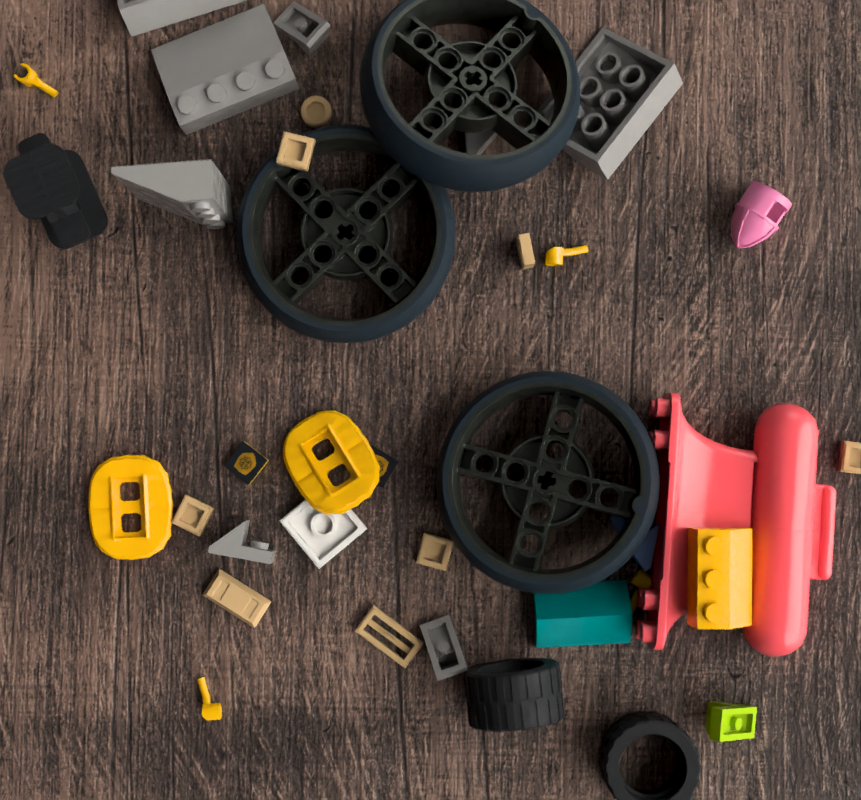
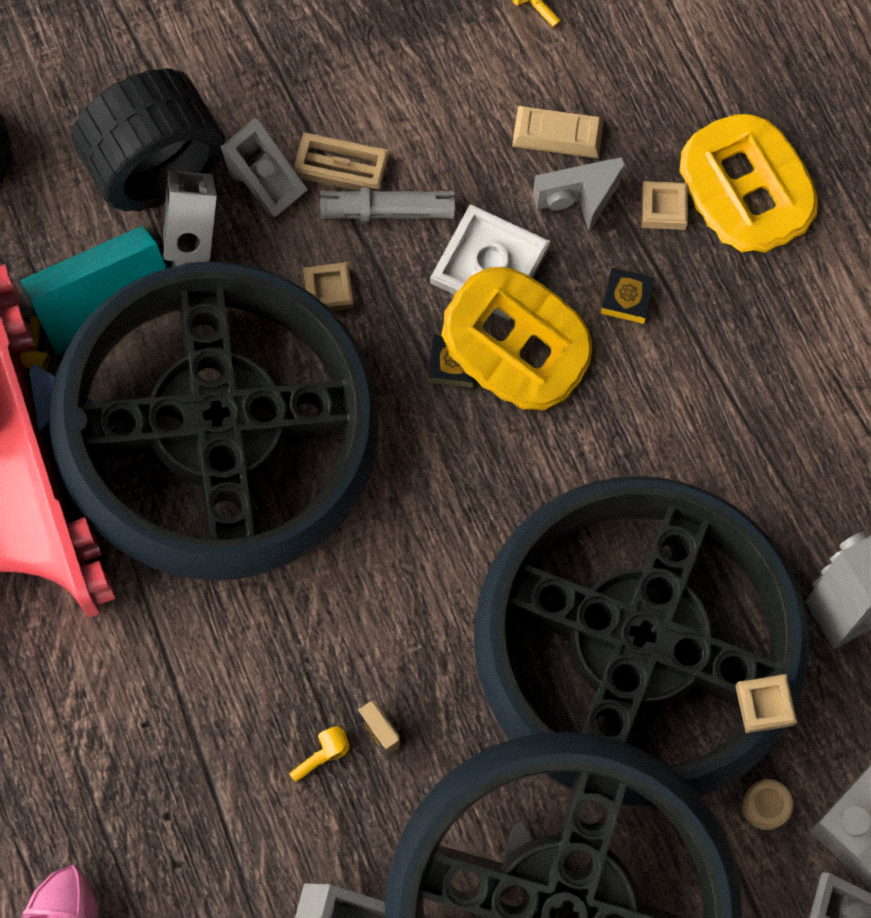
camera: 150 degrees right, 15 degrees down
(373, 592) = (378, 204): none -> light grey pin
(512, 621) = (188, 209): none -> light grey torso

